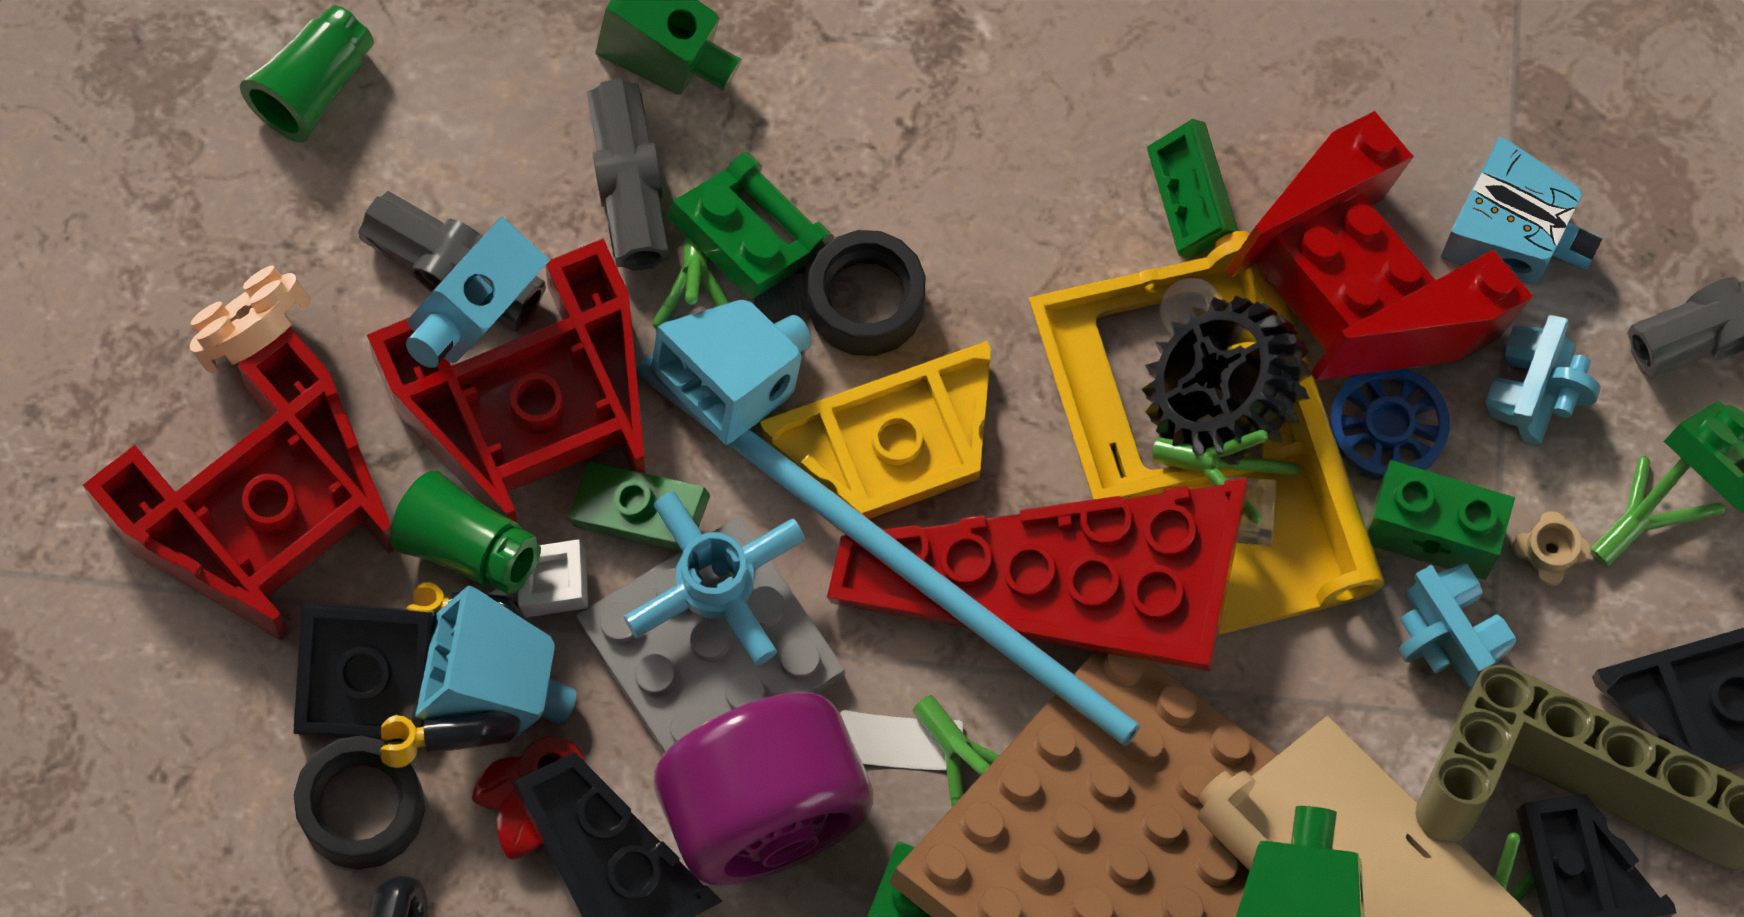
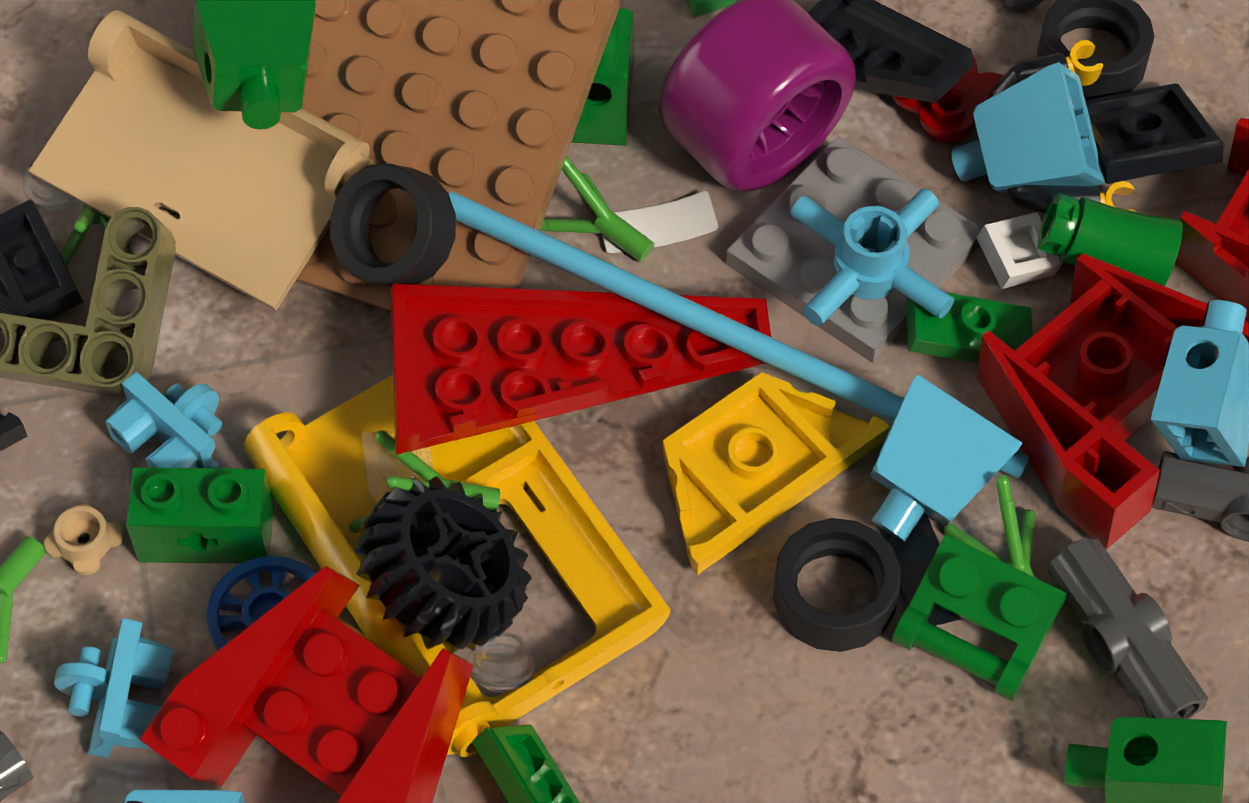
camera: 165 degrees right, 10 degrees down
(1171, 739) = (351, 225): none -> black tyre

